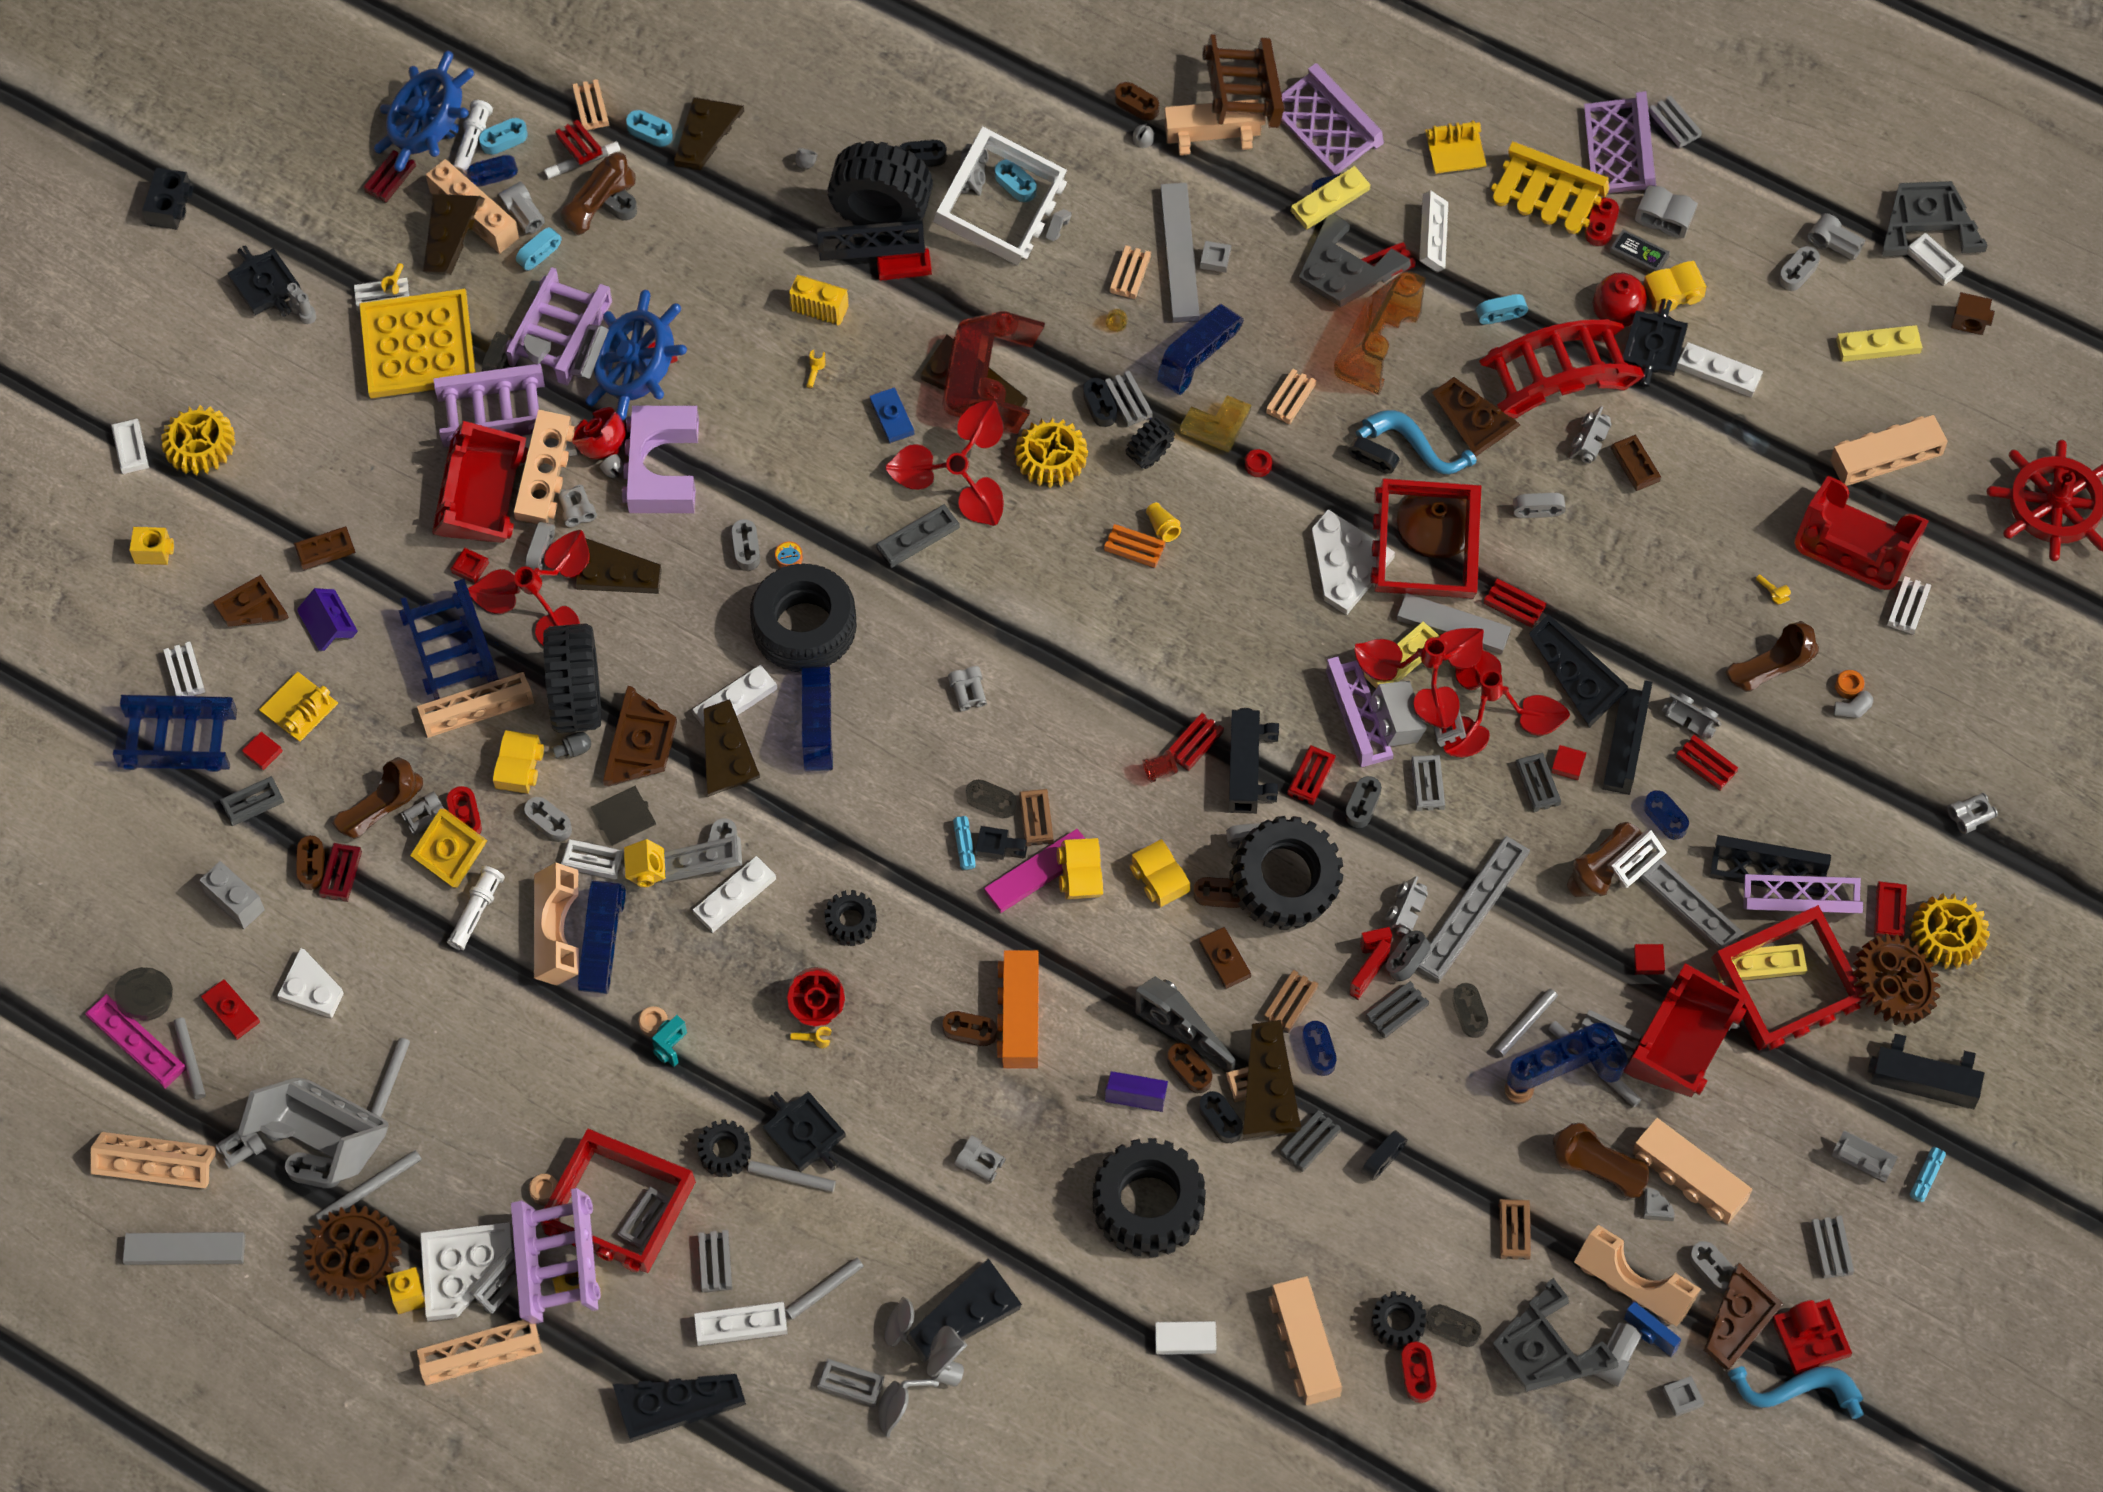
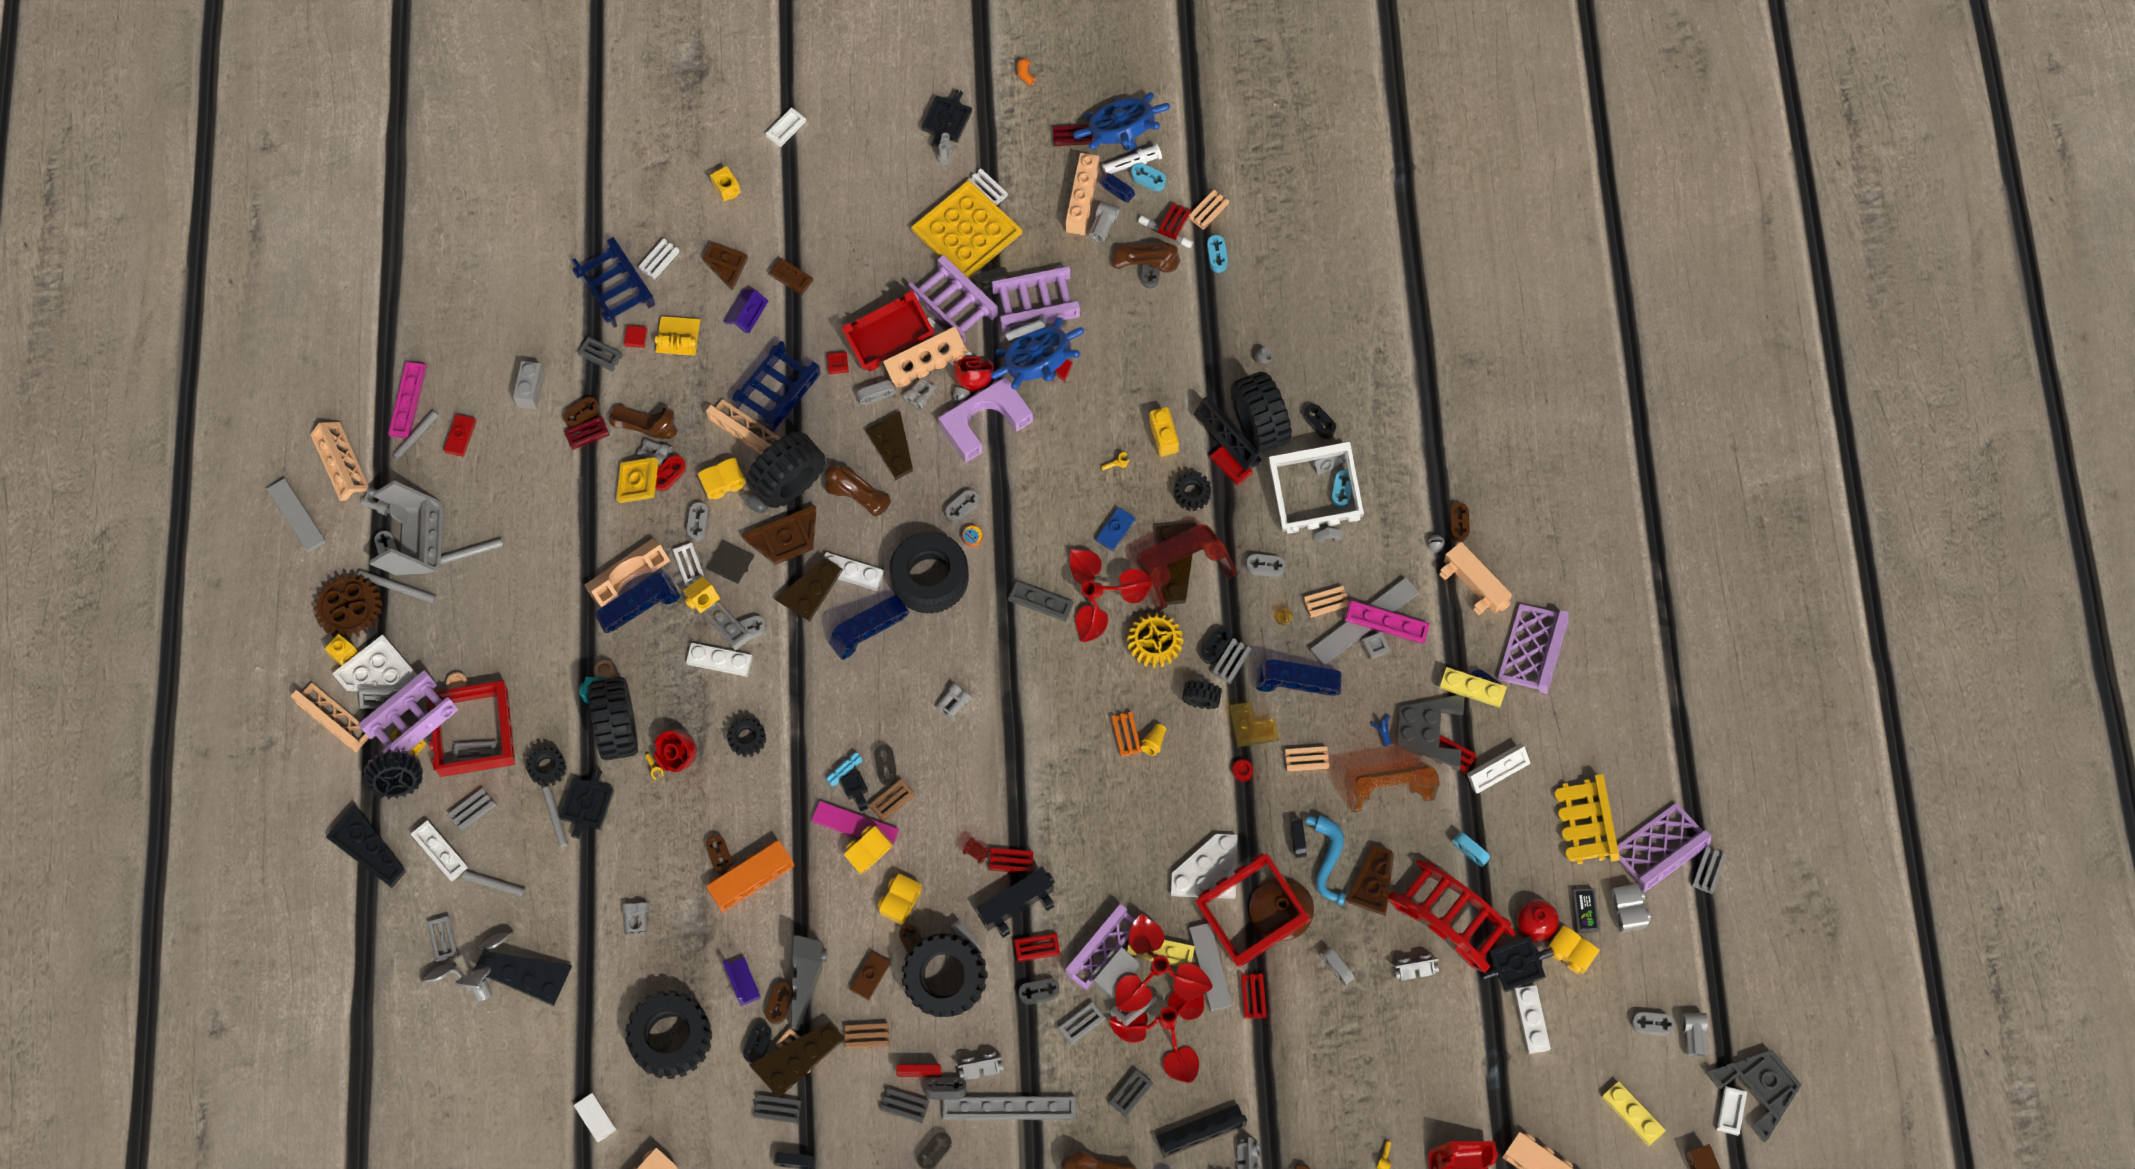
camera: 55 degrees right, 5 degrees up
(143, 993) = (437, 383): clear smoke tile -> none
(163, 197) = (961, 24): black brick -> none
(197, 449) = (803, 154): yellow gear -> none
(270, 175) = (1022, 71): none -> orange arm
(310, 987) = (502, 467): white wing -> none
(392, 280) = (994, 191): yellow hand -> none
(448, 226) = (1052, 191): dark brown wing -> none
(480, 896) = (620, 519): white pin -> none
(498, 588) = (831, 392): red plant -> none
(536, 348) = (1005, 296): light grey tile -> none
(538, 249) = (1081, 250): medium azure beam -> none
(615, 1311) = (393, 774): none -> black gear
(625, 638) = (845, 482): none -> reddish brown hair
(703, 130) = (1242, 284): dark brown wing -> none
(734, 1029) = (613, 718): none -> black tyre
(907, 303) = (1192, 502): none -> black tyre
(1042, 298) = (1265, 565): none -> light grey beam
(1198, 230) = (1387, 622): none -> dark pink tile
(1265, 73) = (1522, 596): reddish brown fence -> none
(1313, 308) = (1383, 730): none -> blue bar
(1325, 1046) = (841, 1070): clear blue beam -> none
(1370, 939) = (939, 1058): red tile -> none
(1456, 147) = (1577, 741): yellow hinge -> none
(1568, 762) = (1158, 1103): red tile -> none
(1581, 673) = (1227, 1076): black wing -> none
(1603, 220) = (1592, 870): red plate -> none
(1635, 462) = (1416, 1008): reddish brown plate -> none

